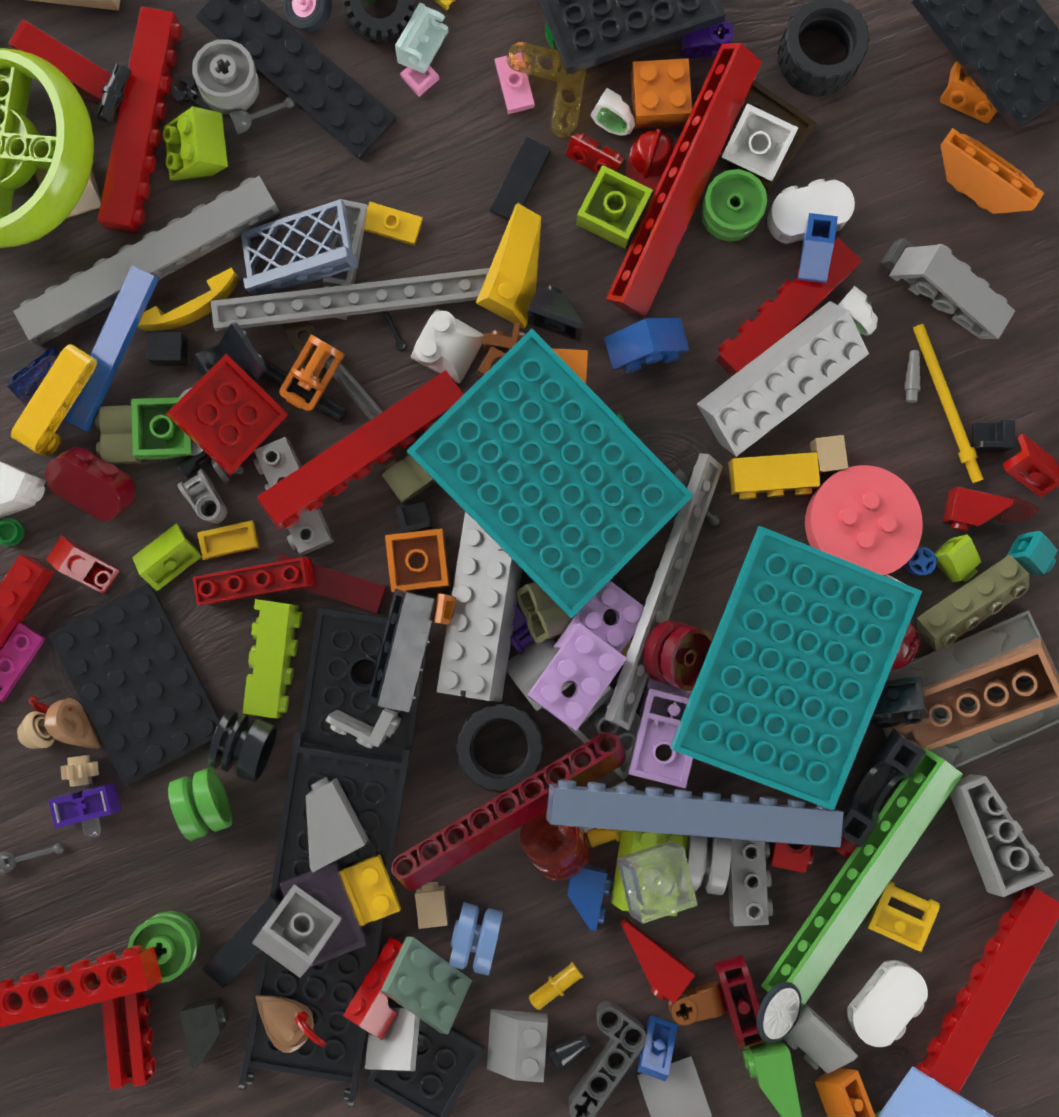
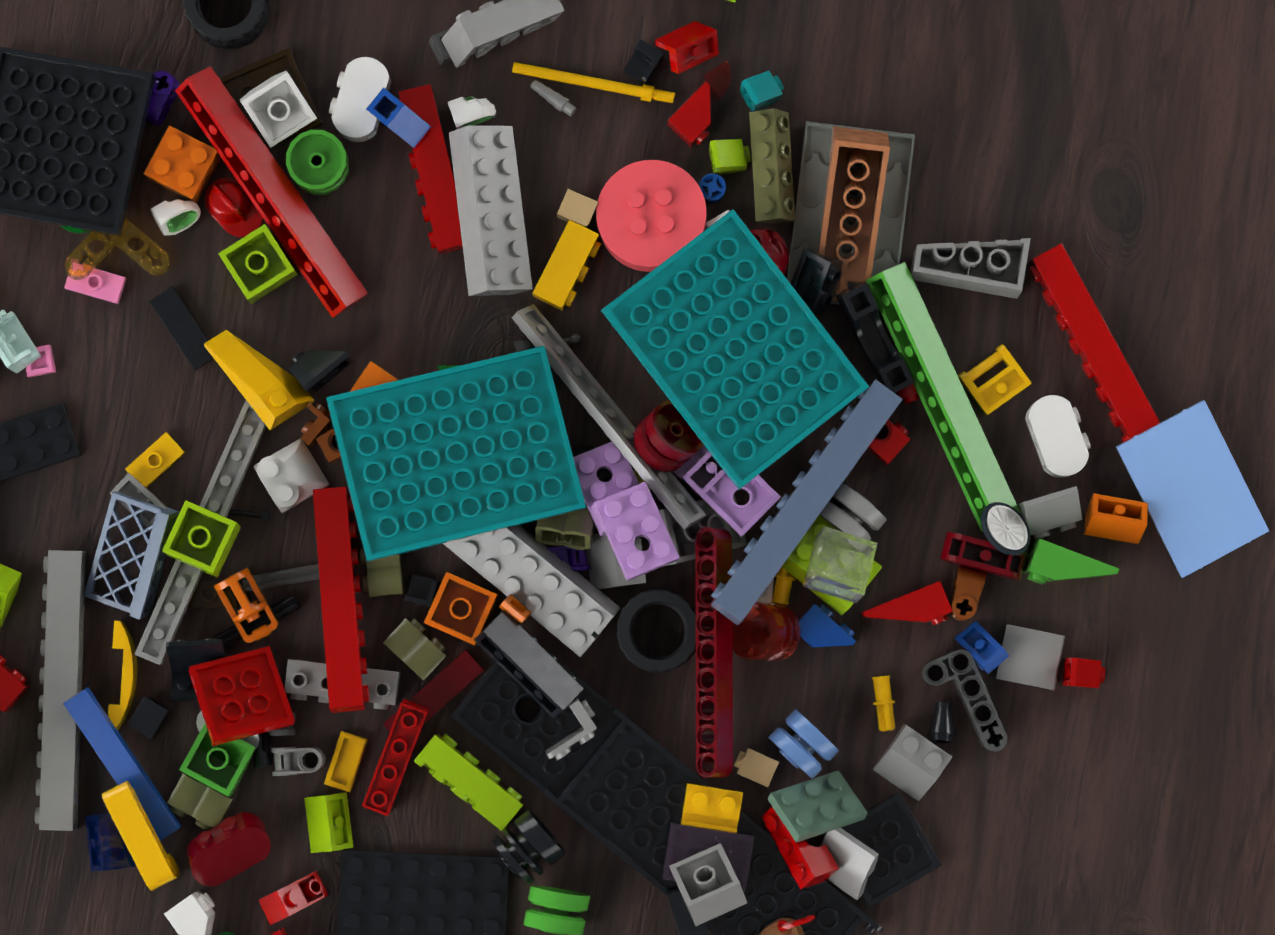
camera: 65 degrees left, 0 degrees up
(331, 824) = (638, 806): light grey slope -> none
(343, 297) = (201, 538): none -> lime brick
(360, 542) = (415, 648): none -> olive brick
(584, 151) = (191, 260): red hinge -> none
(646, 342) = (391, 306): blue brick -> none
(749, 883) = (889, 489): light grey brick -> none

